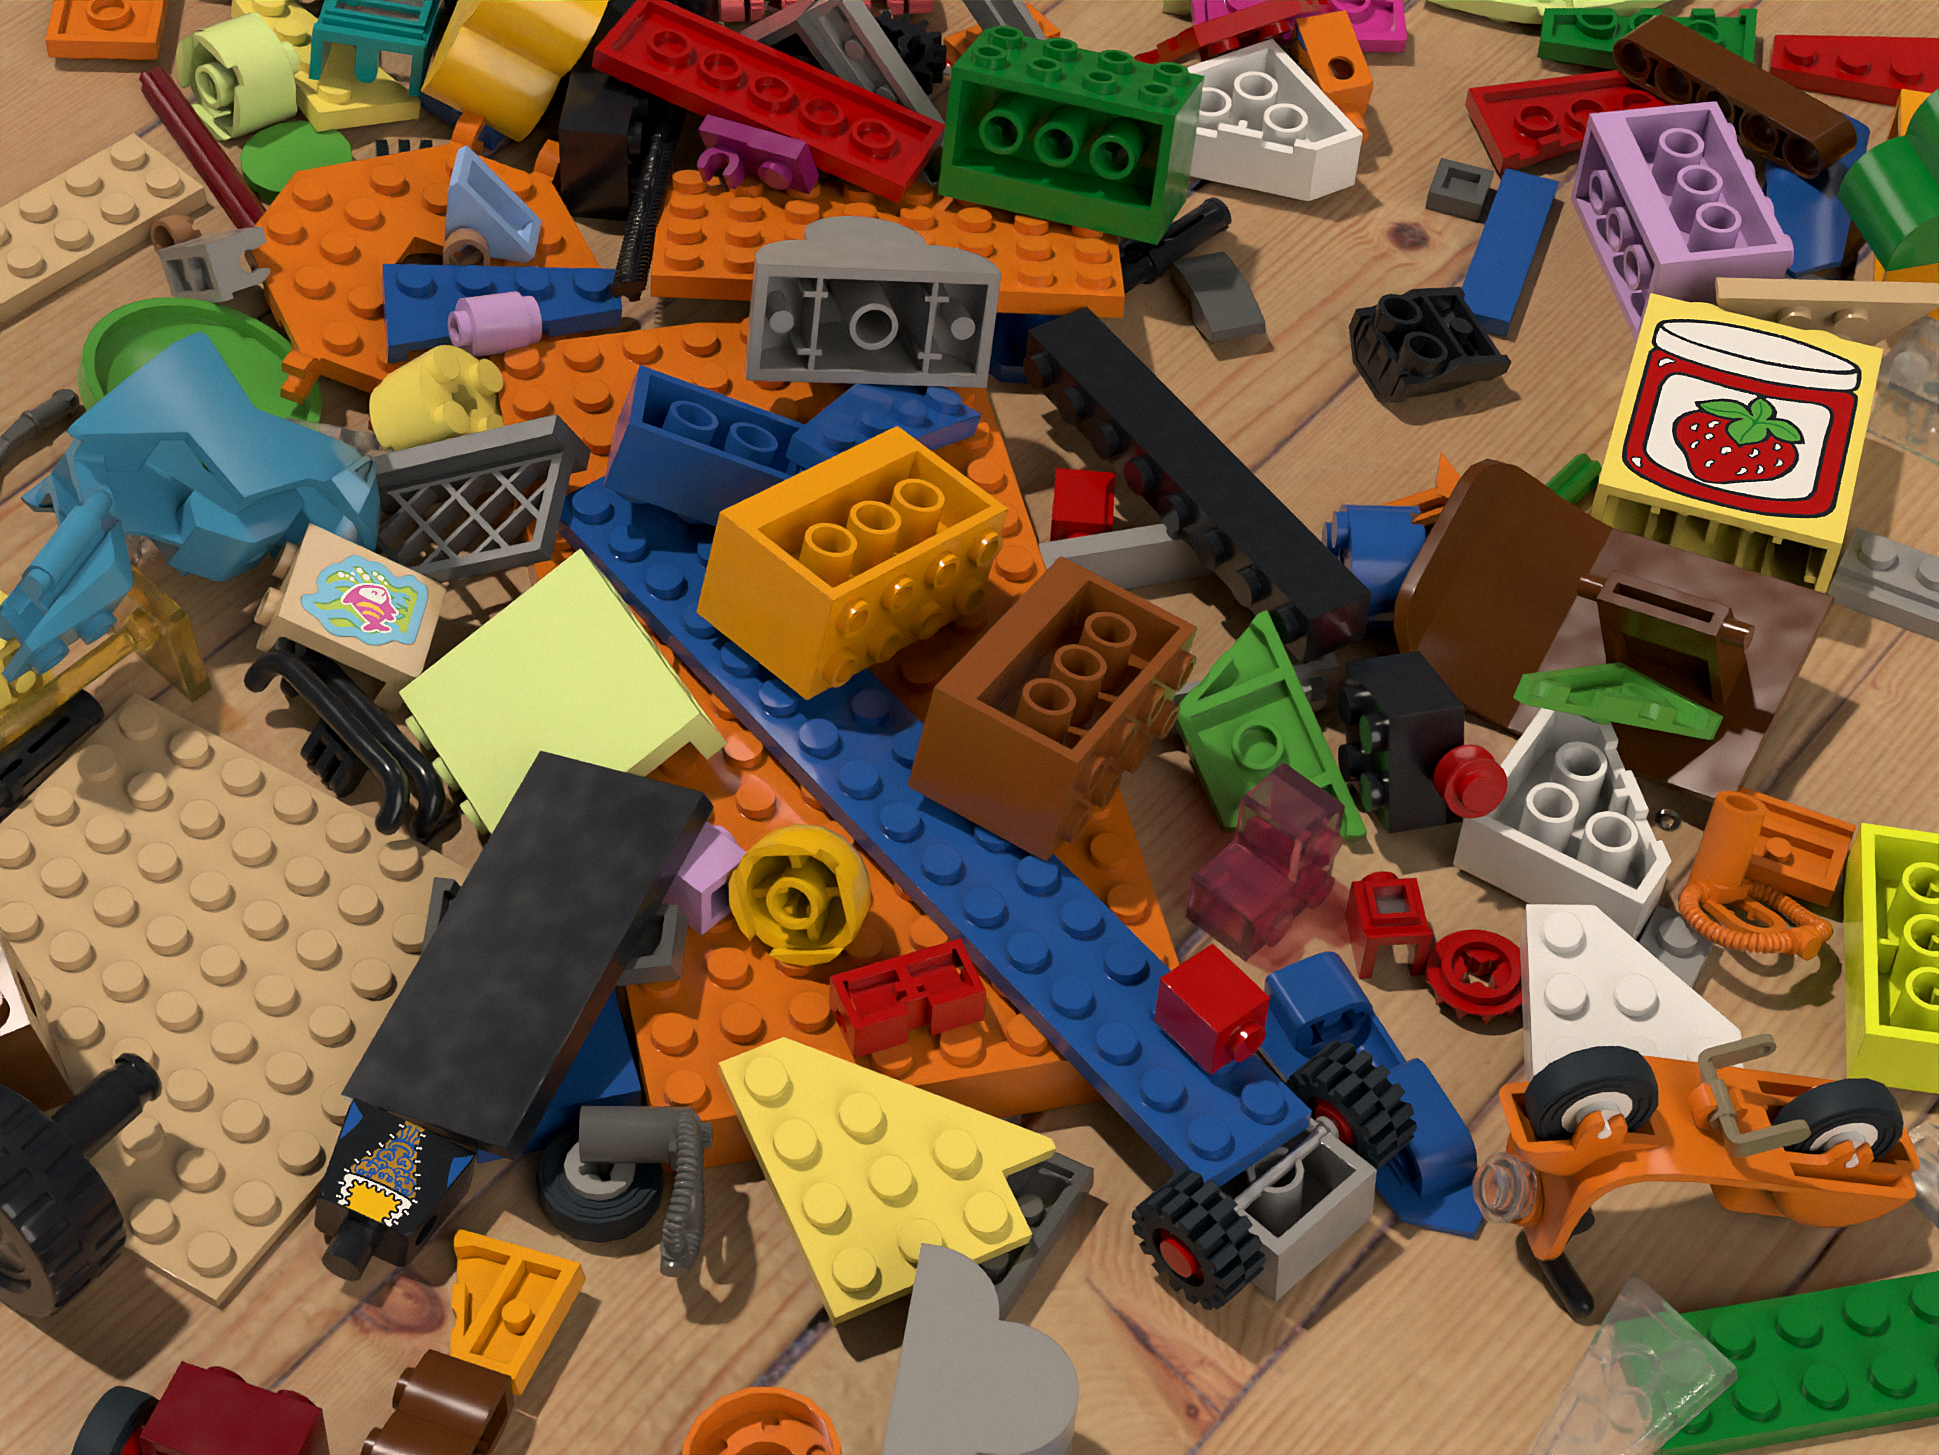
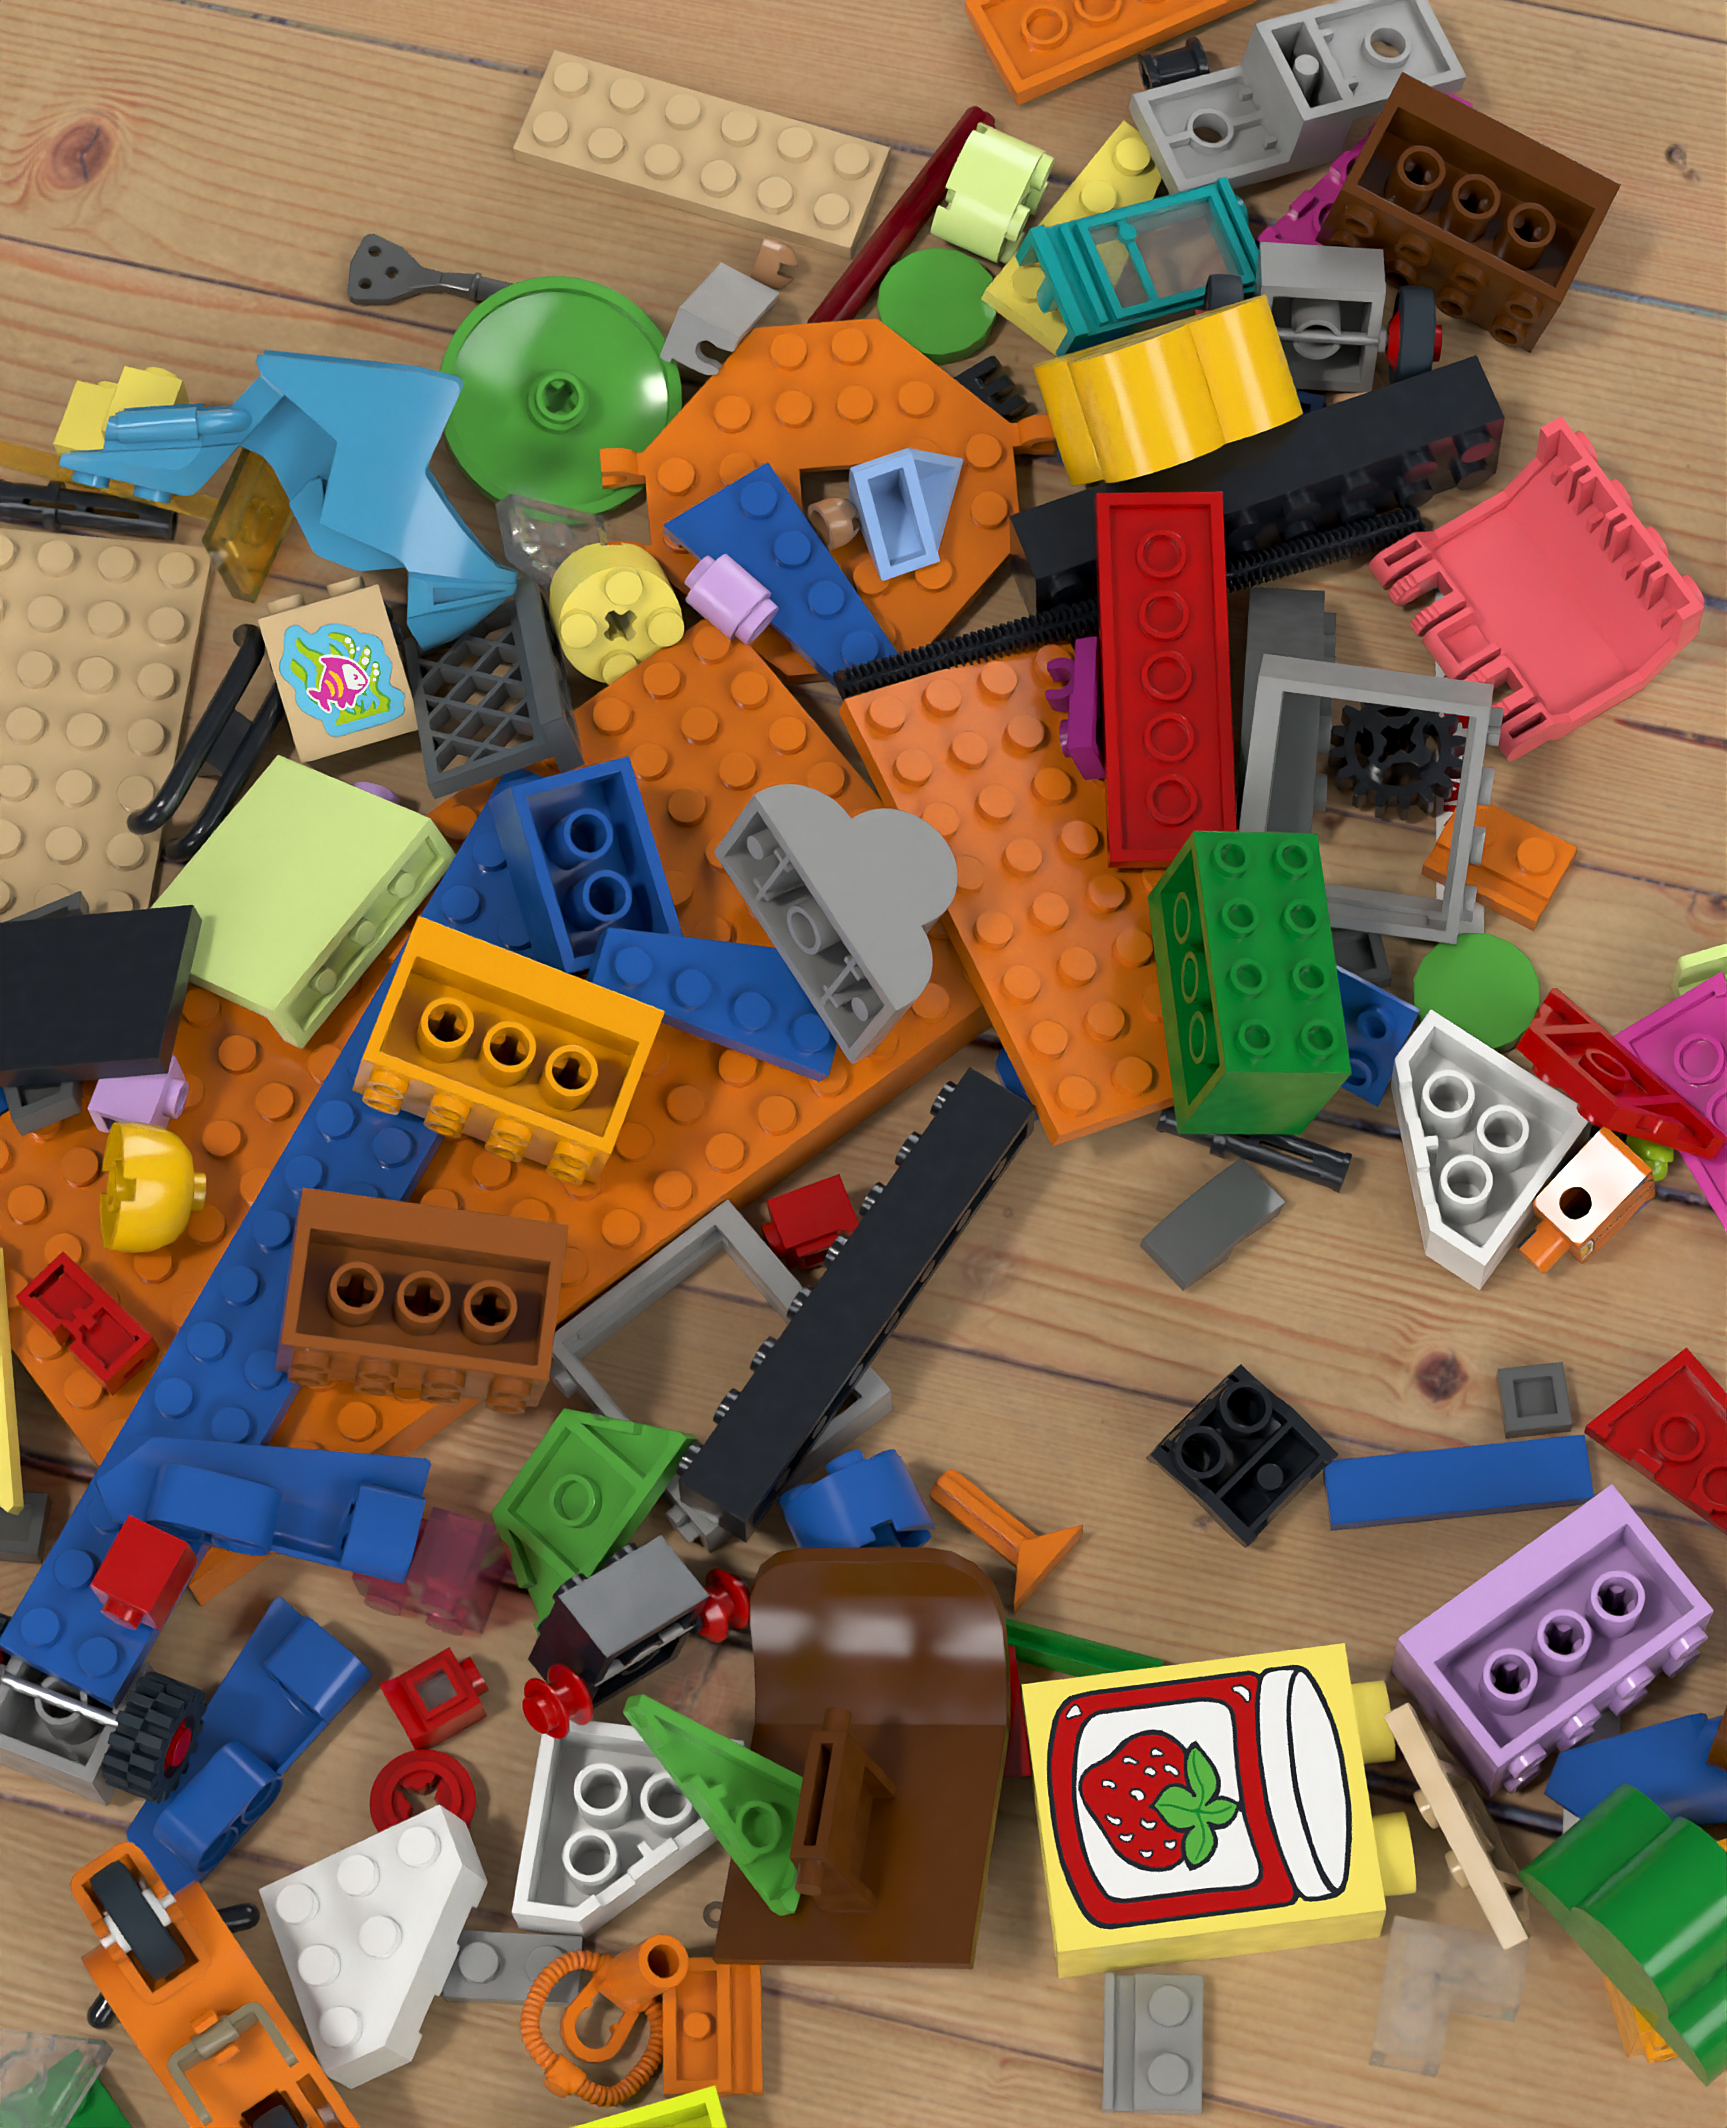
camera: 75 degrees right, 20 degrees up
(1179, 903) = (291, 1501): none -> blue panel

